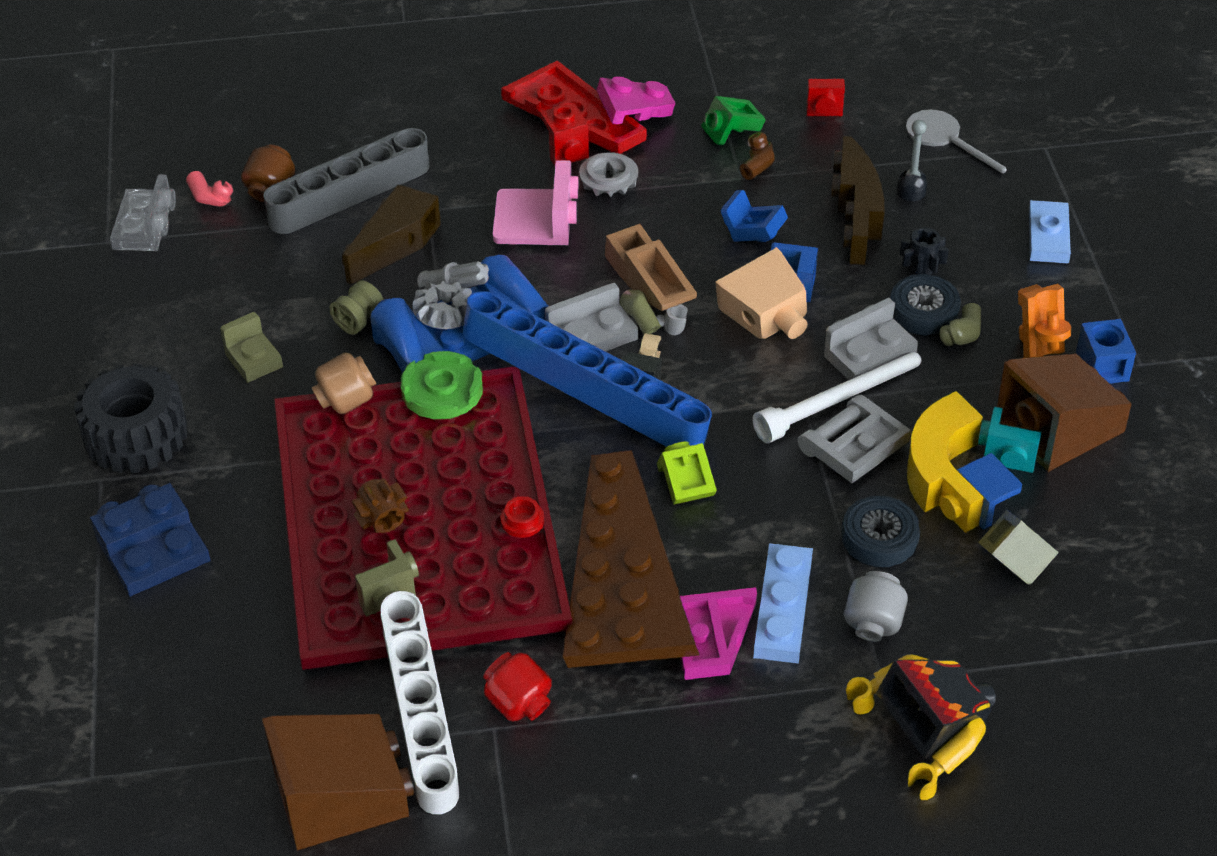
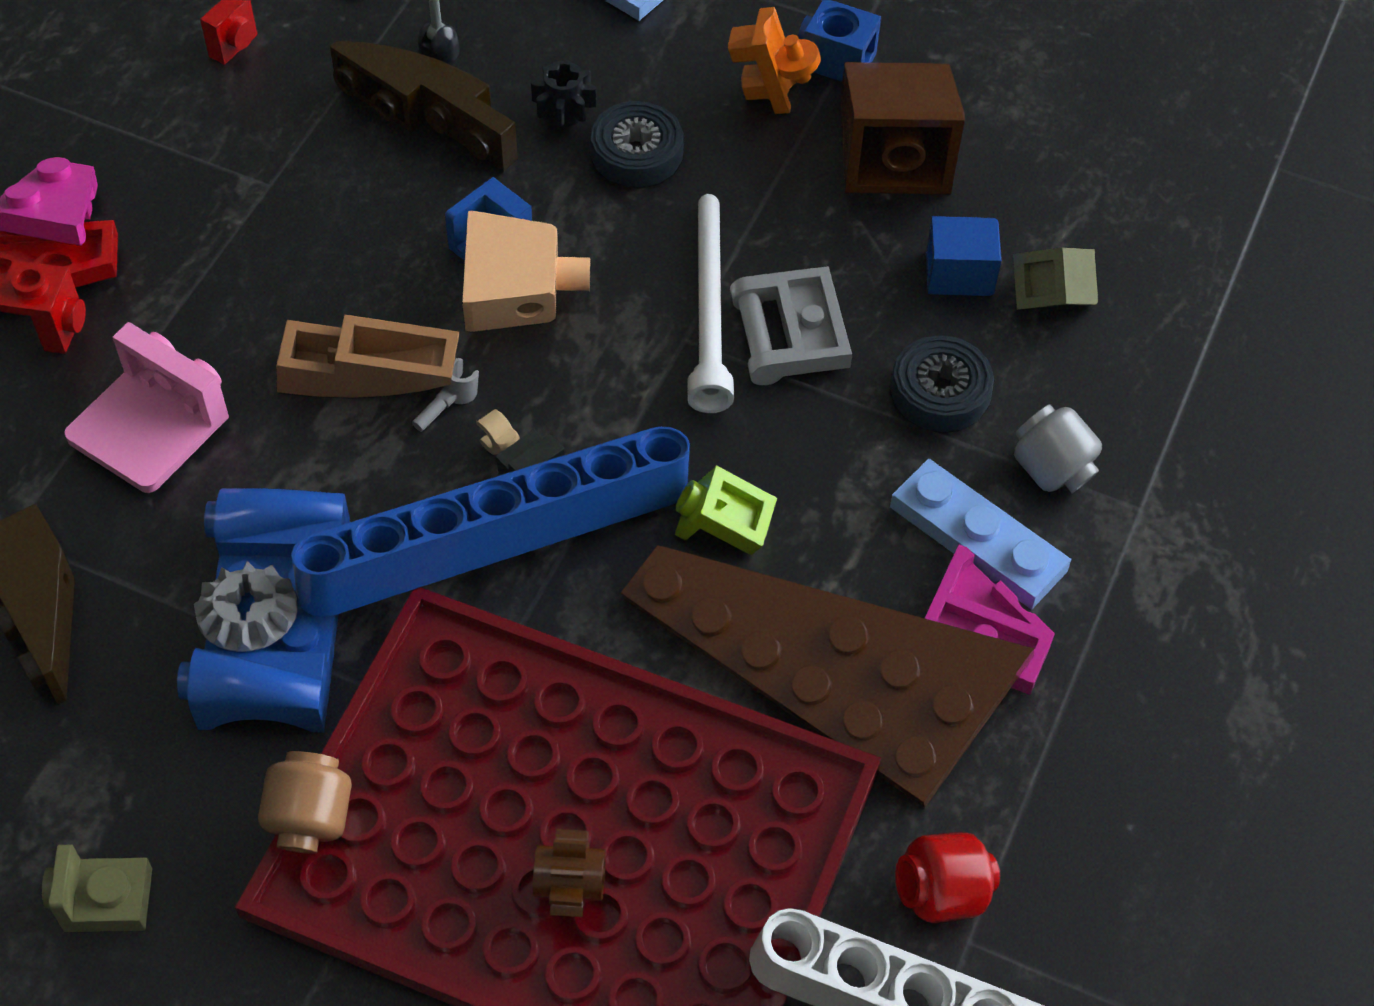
camera: 60 degrees left, 10 degrees up
(355, 309) = (140, 713): olive wheel -> none
(386, 579) = (703, 905): olive bracket -> none
(441, 385) = (386, 689): bright green tile -> none
(466, 274) = (184, 582): light grey axle -> none
(522, 517) = (695, 721): red plate -> none
(595, 318) = (398, 463): light grey bracket -> none
(621, 168) = (142, 287): light grey gear -> none
(637, 307) = (416, 405): olive arm -> none
(728, 115) = (170, 133): green bracket -> none
(750, 222) = (372, 212): blue bracket -> none
(761, 156) = (258, 142): reddish brown arm -> none
(867, 340) = (658, 228): light grey bracket -> none
(934, 707) = (1242, 479): torso -> none
(939, 436) = (882, 278): yellow arch -> none
(965, 329) = (704, 129): olive arm -> none
(1010, 445) = (908, 202): teal bracket -> none

